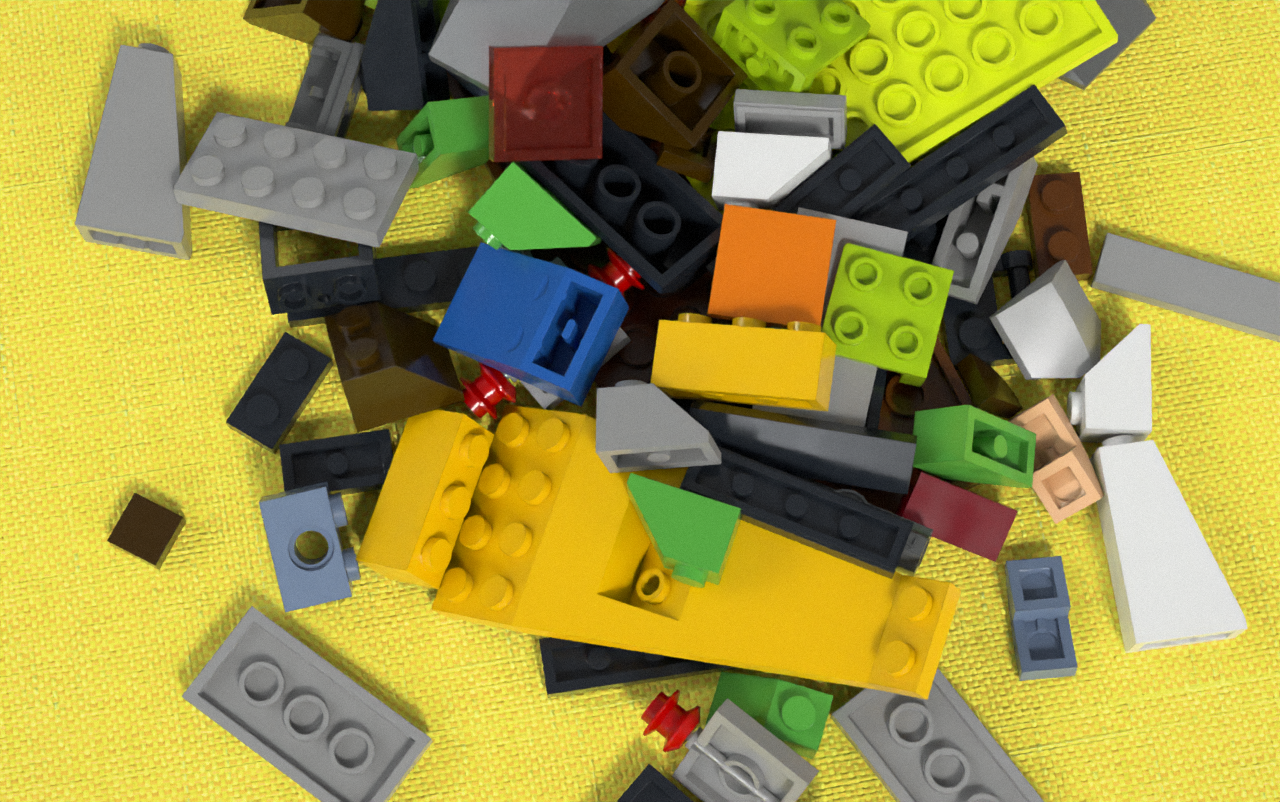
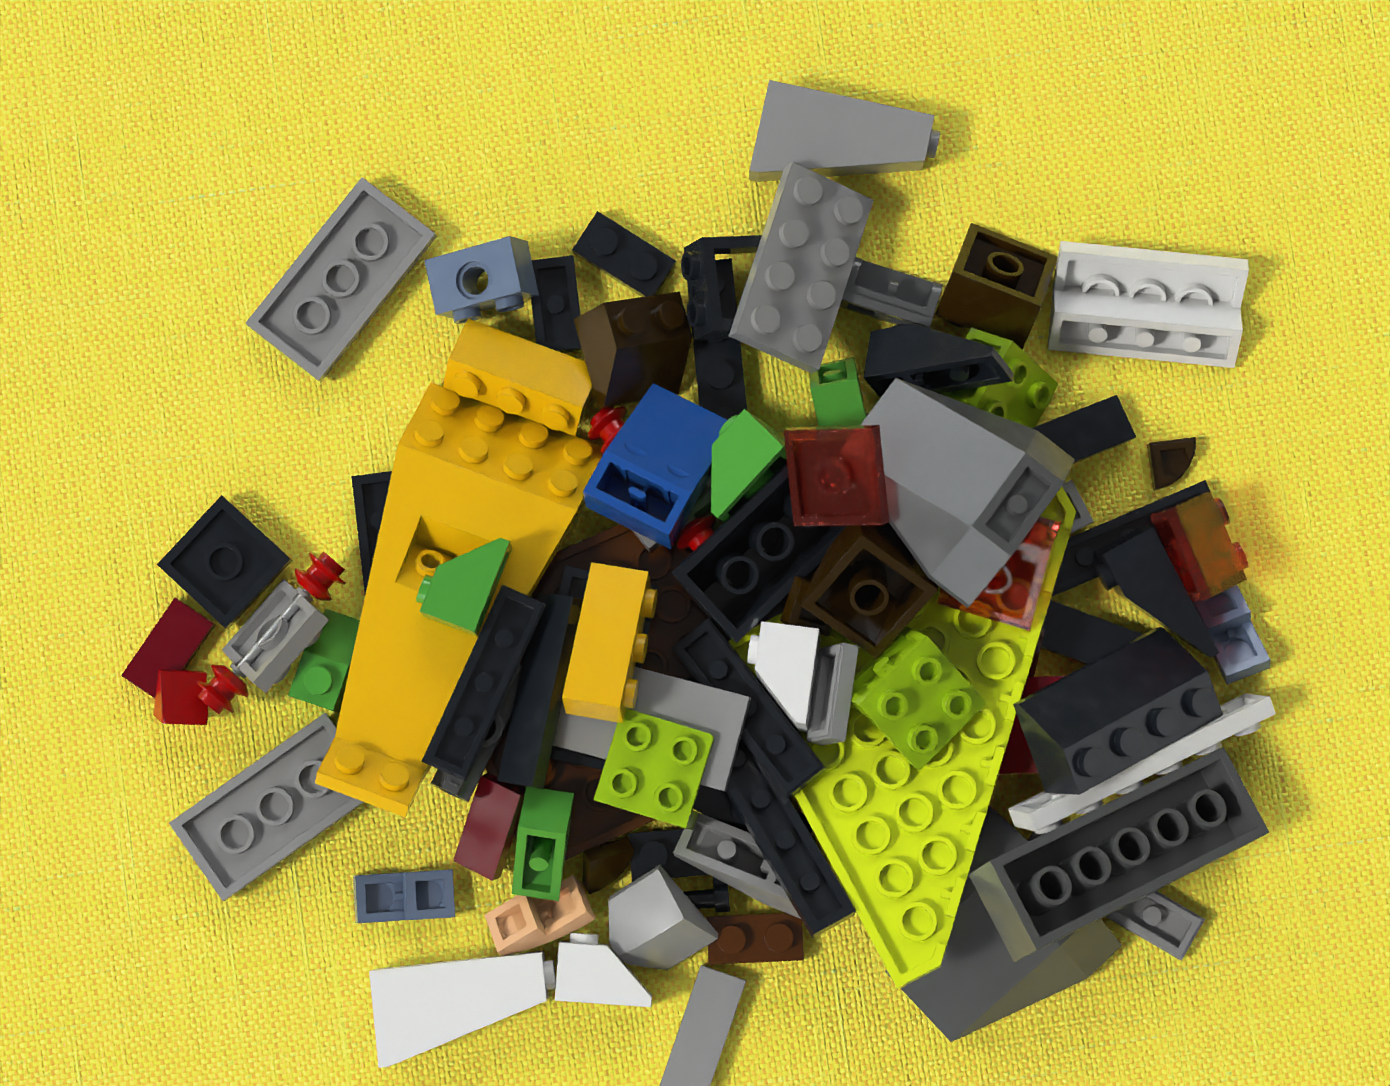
camera: 95 degrees right, 10 degrees up
(146, 531) = (507, 147): dark brown tile -> none
(648, 431) = (551, 558): light grey slope -> none
(771, 266) = (693, 670): orange tile -> none

